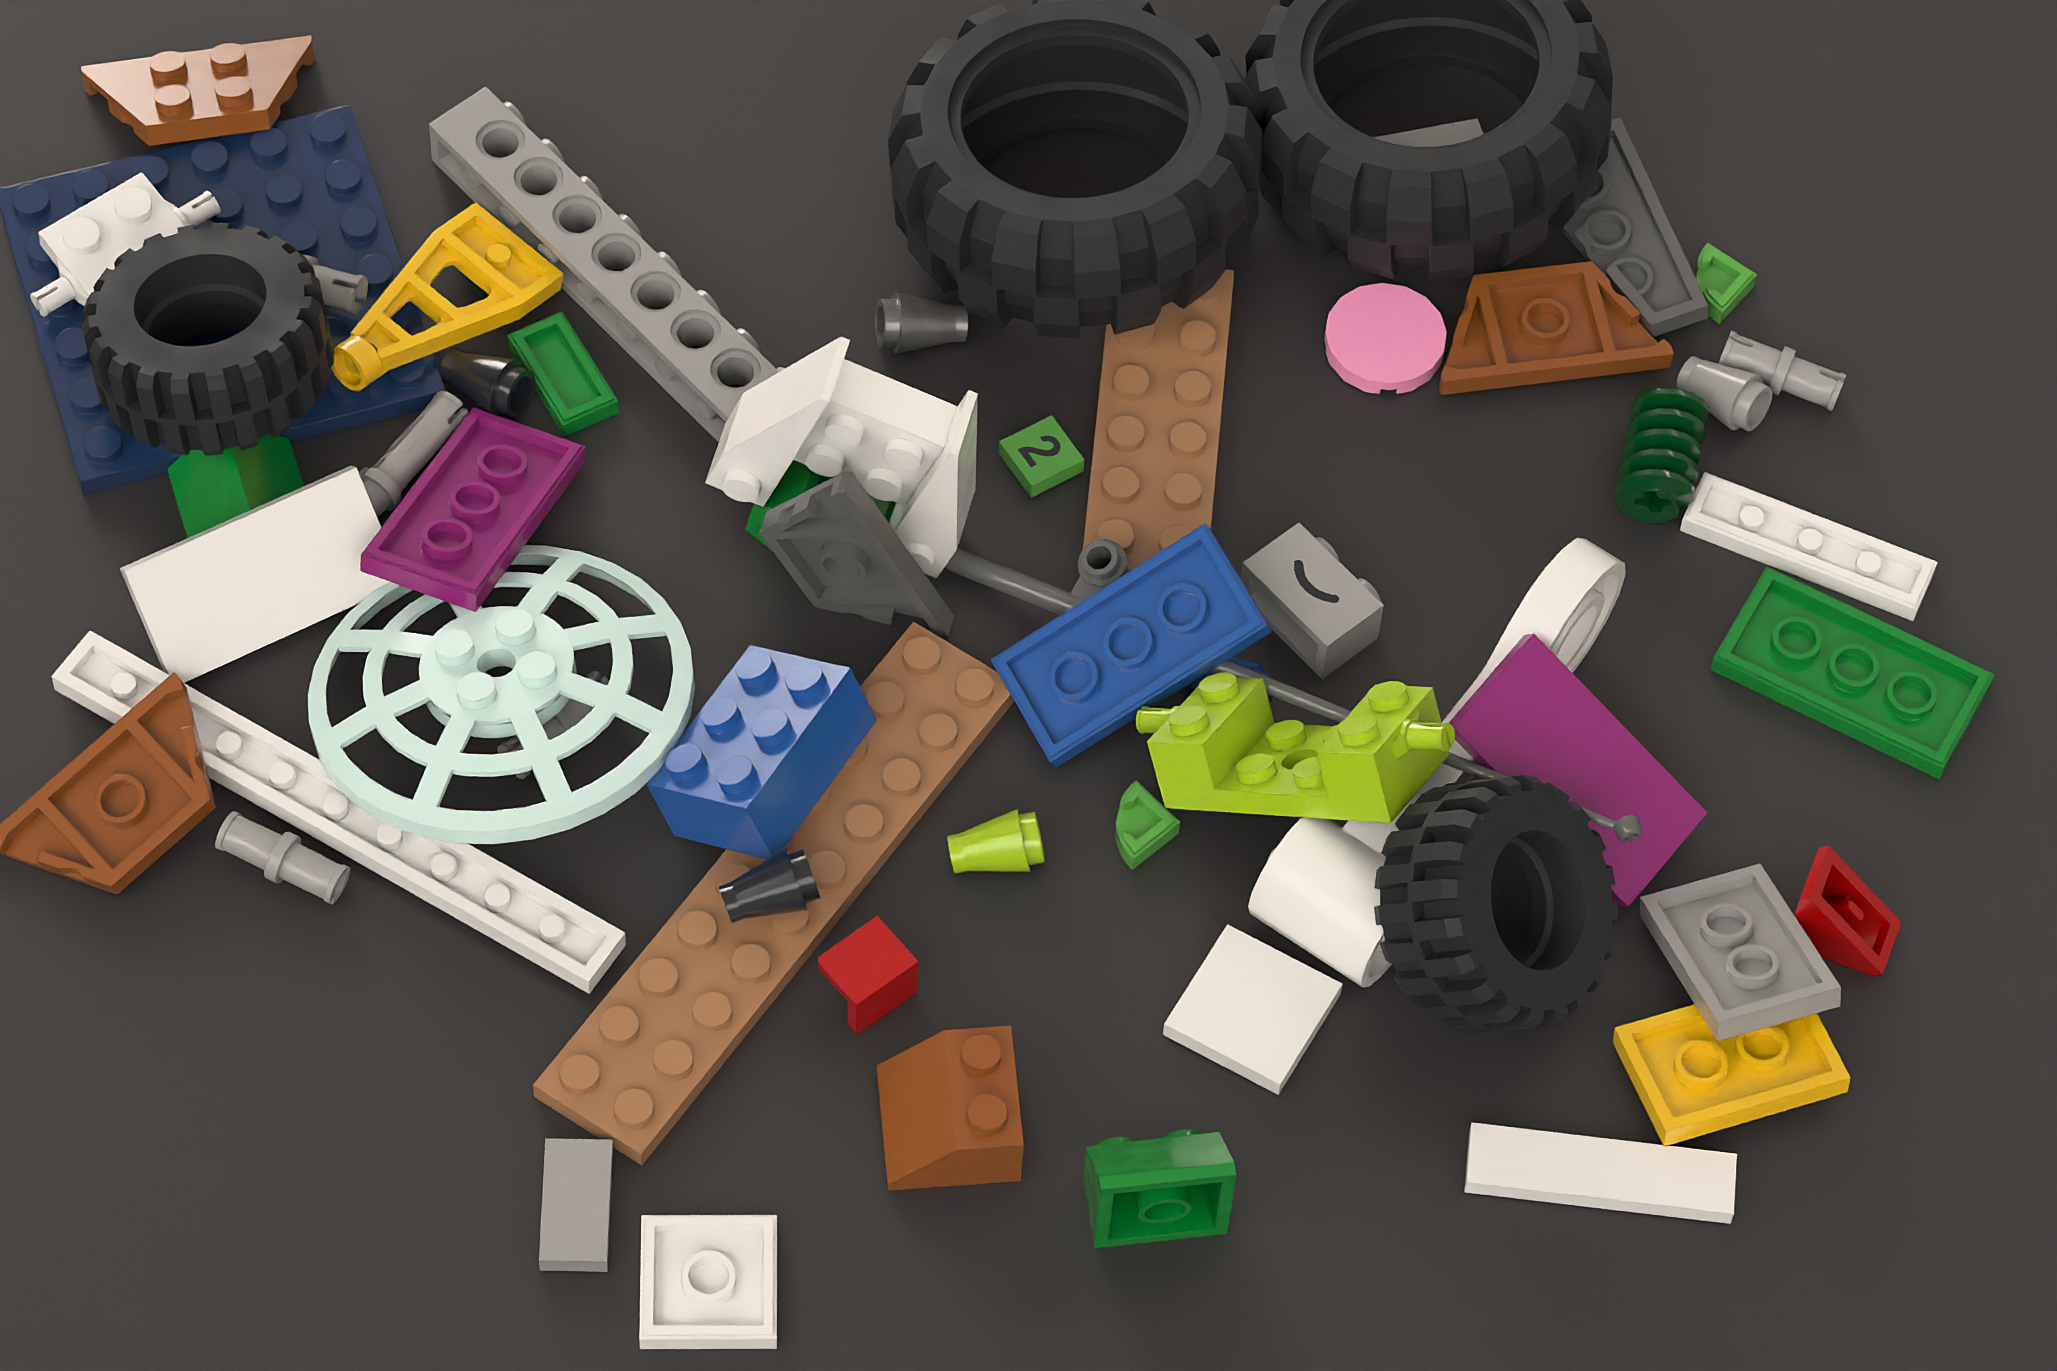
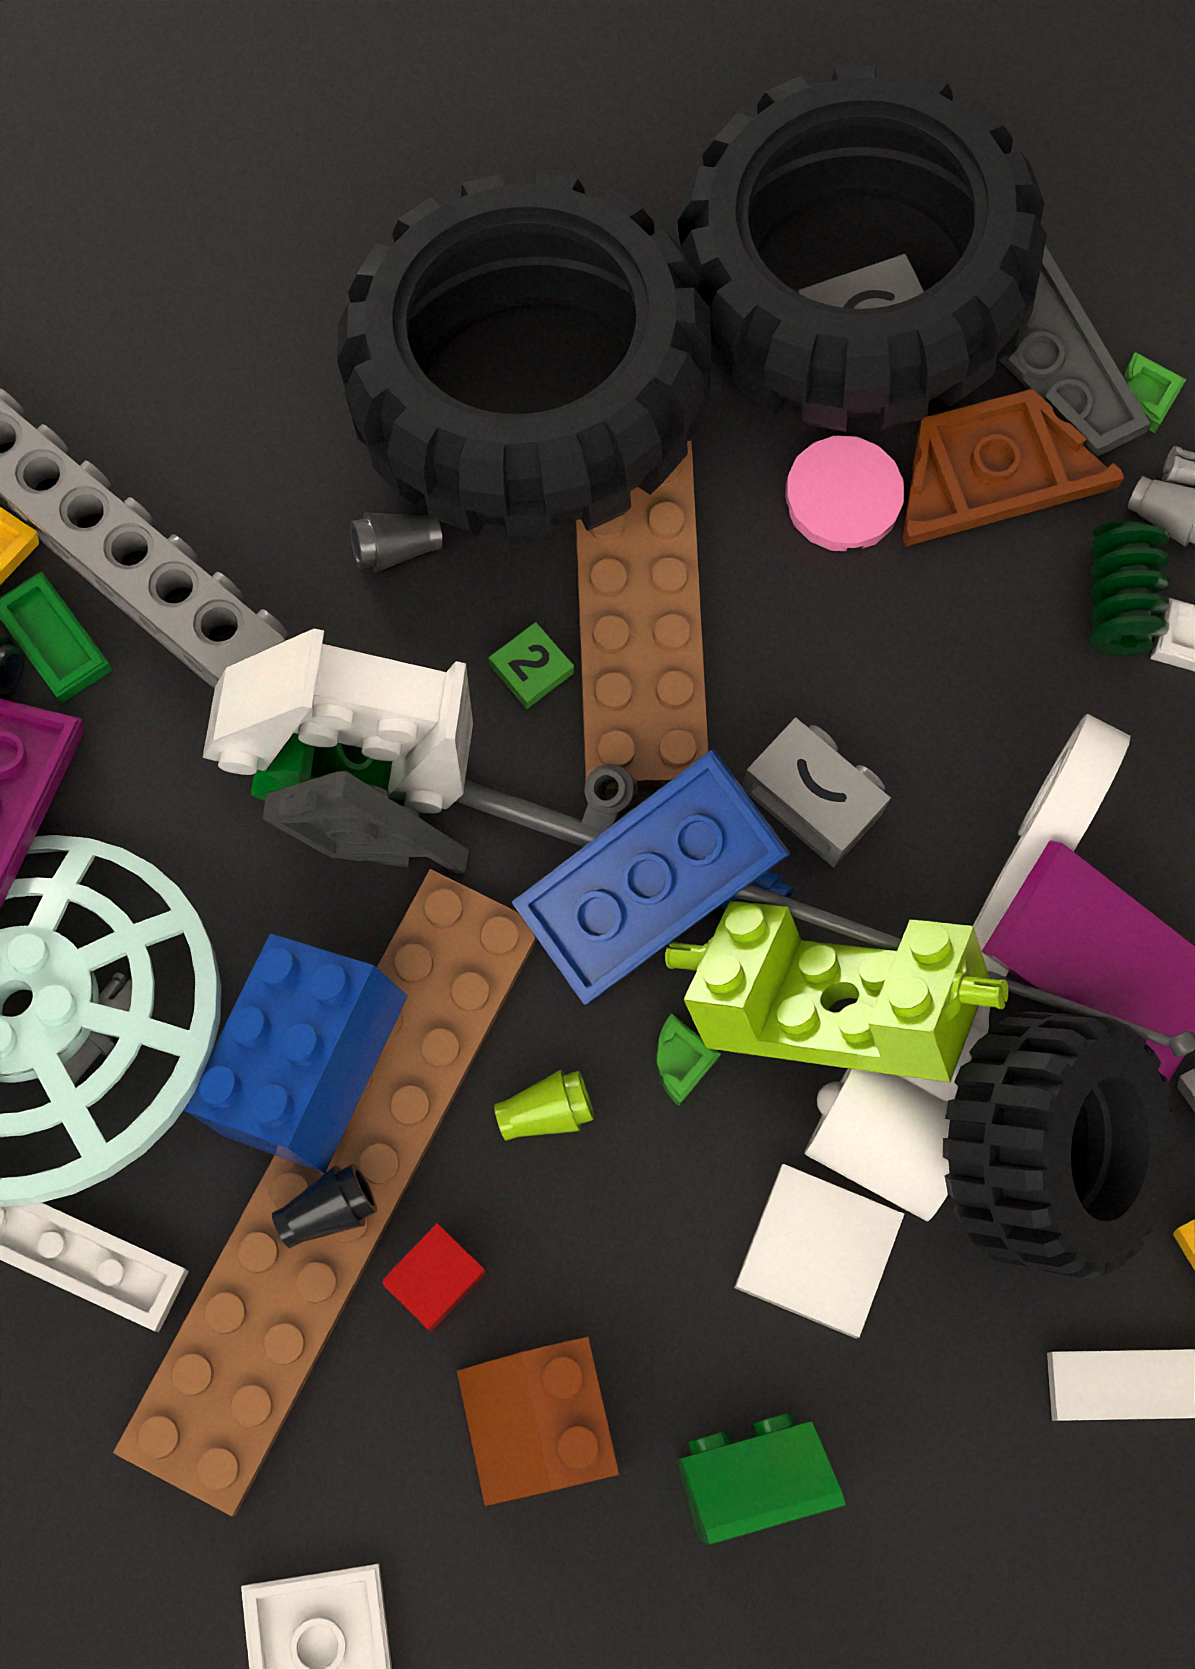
camera: 10 degrees left, 15 degrees up
(576, 1205) = (173, 1581): light grey tile -> none

